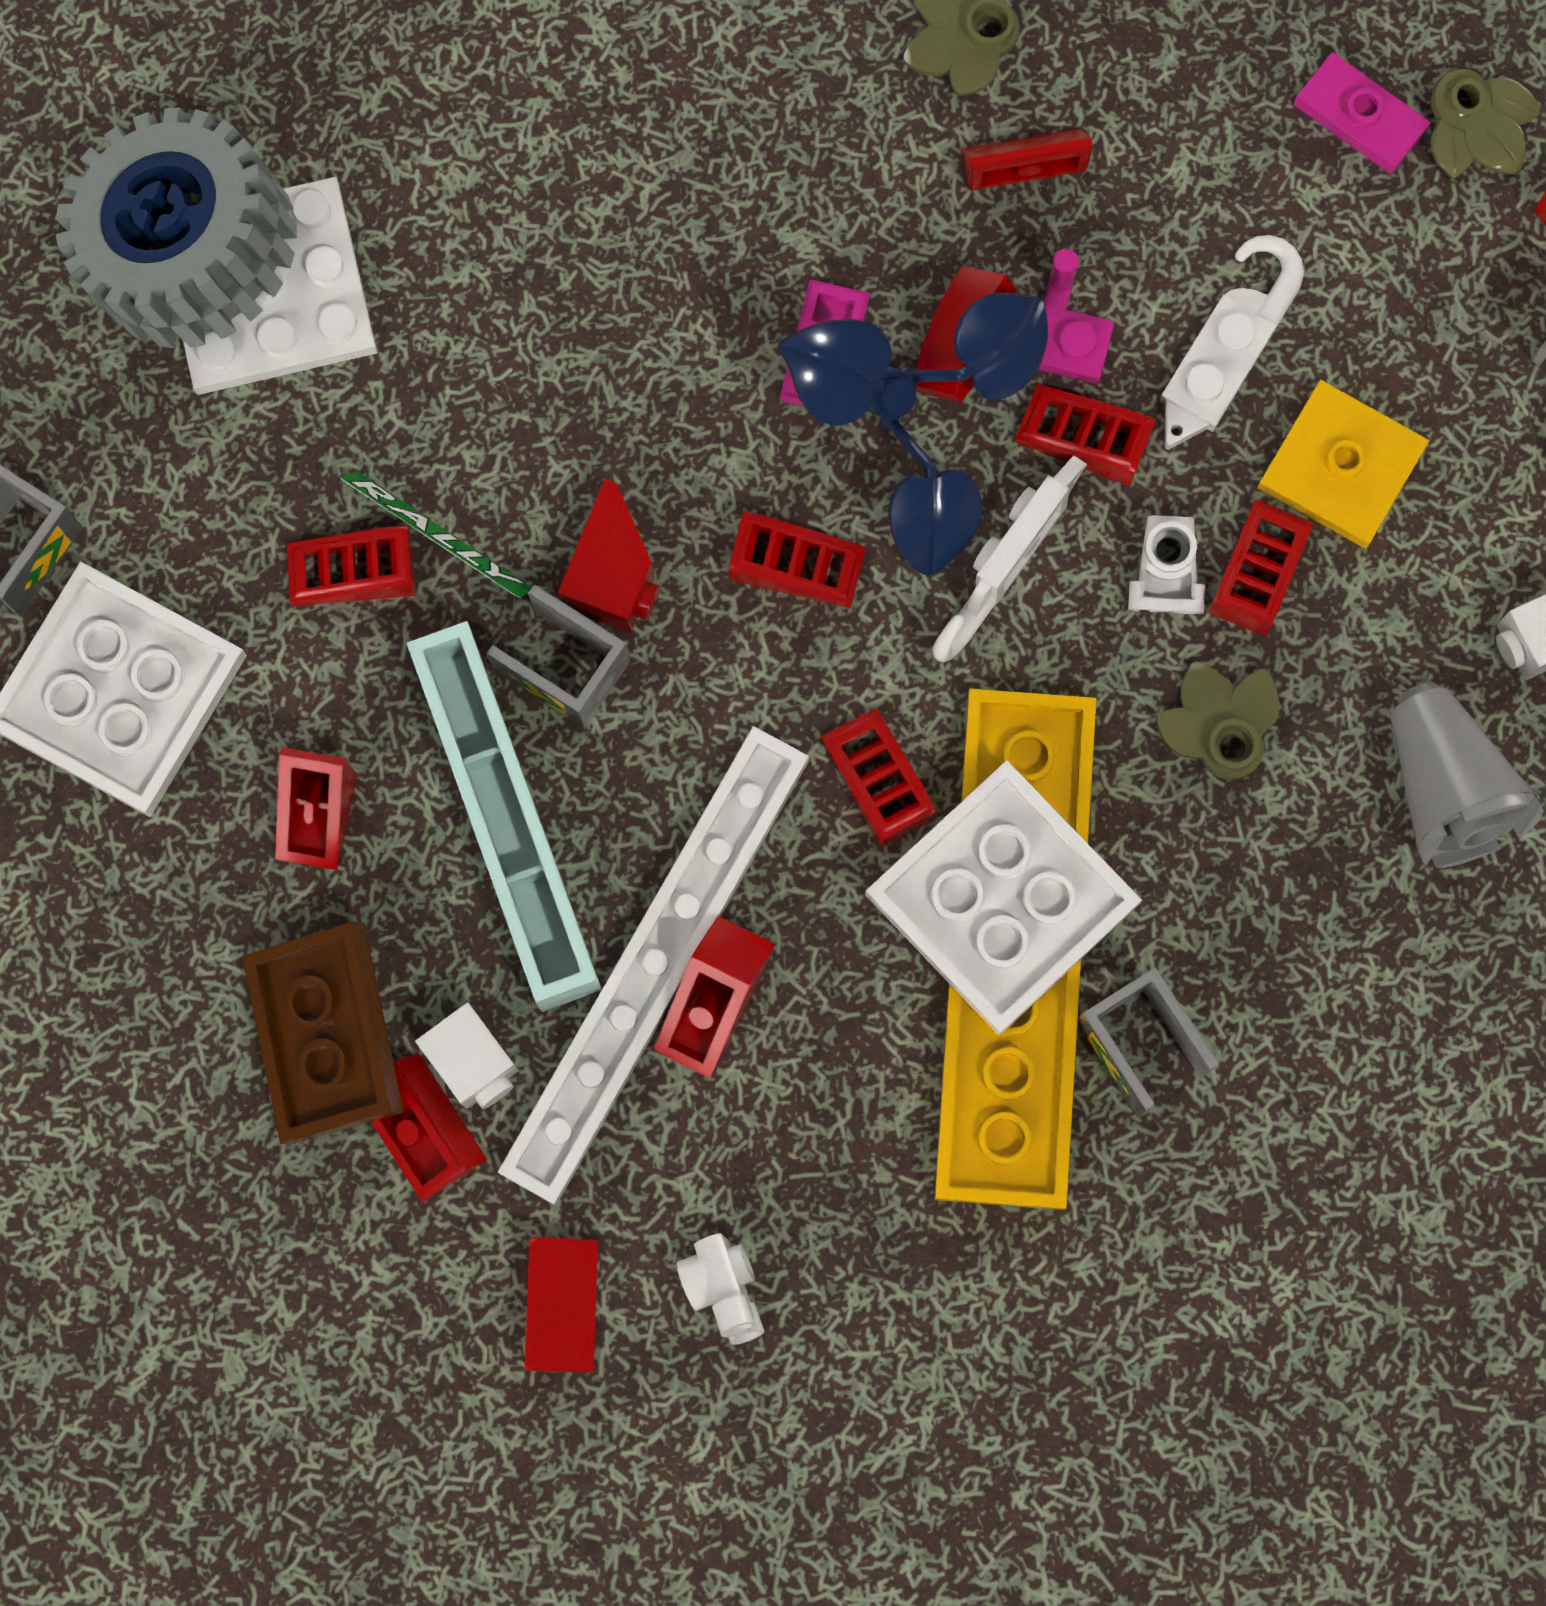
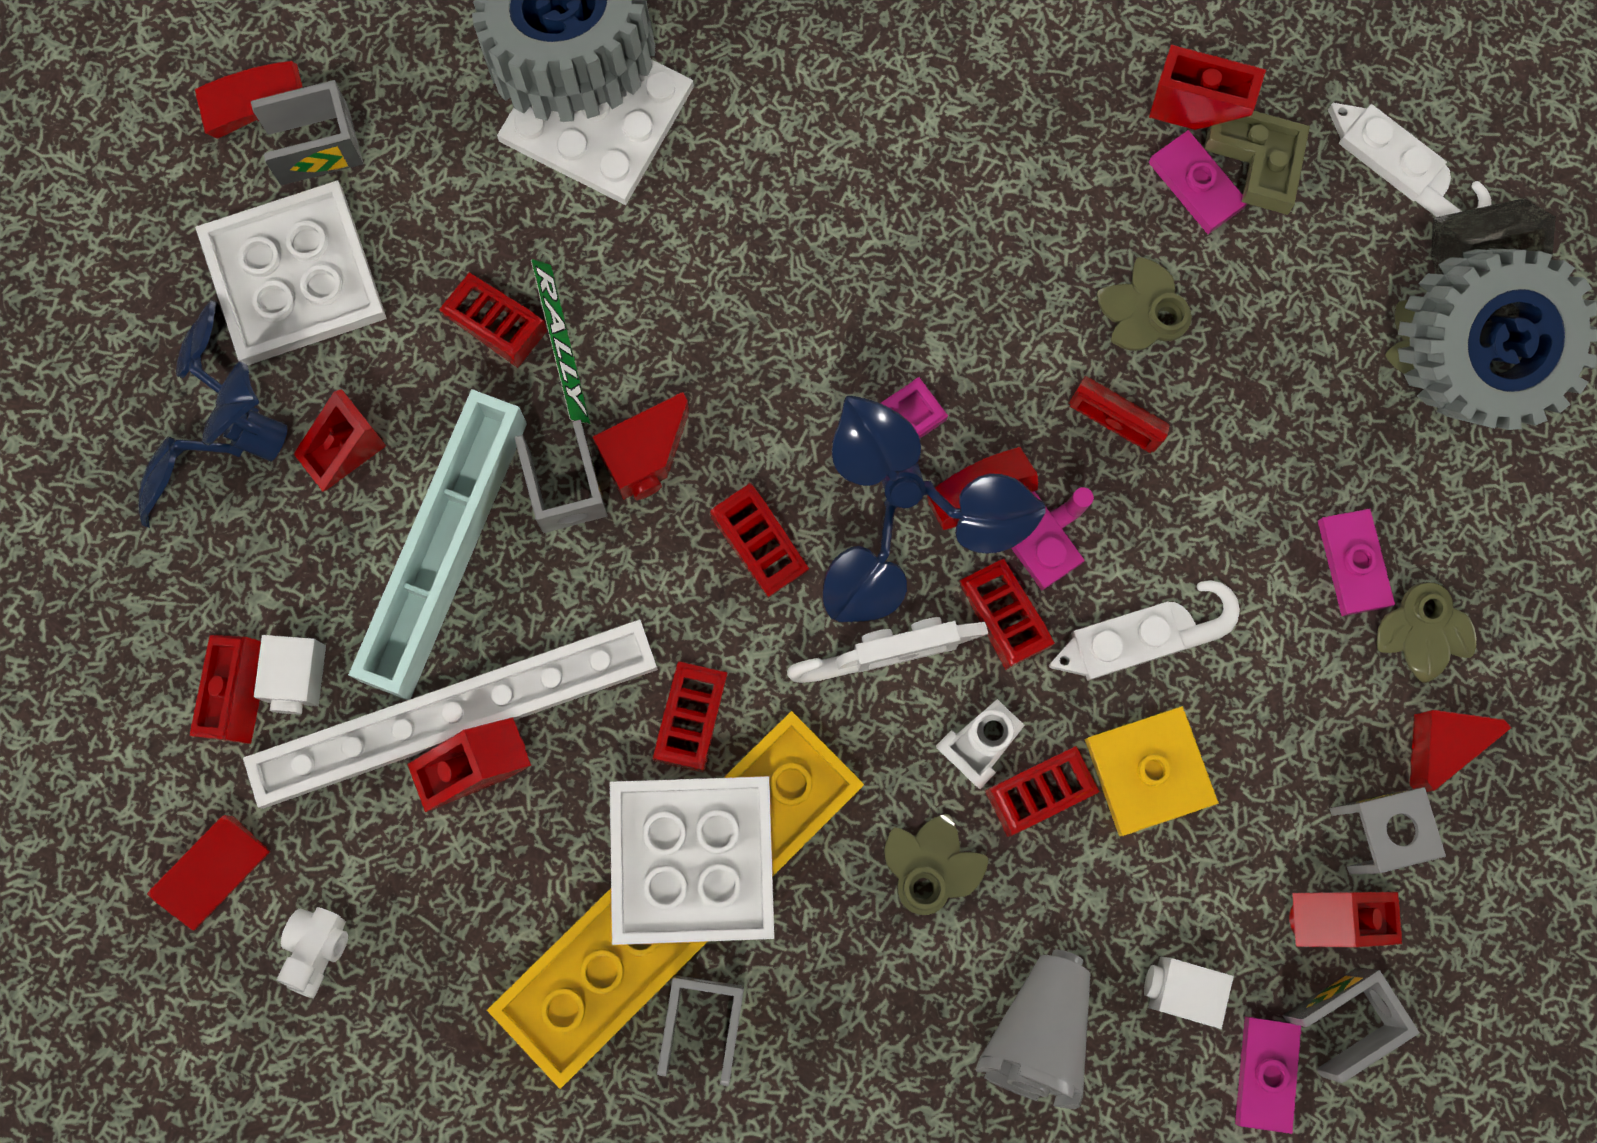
camera: 30 degrees right, 0 degrees up
(215, 866) = (232, 415): none -> dark blue plant
(322, 1033) = (217, 582): reddish brown plate -> none

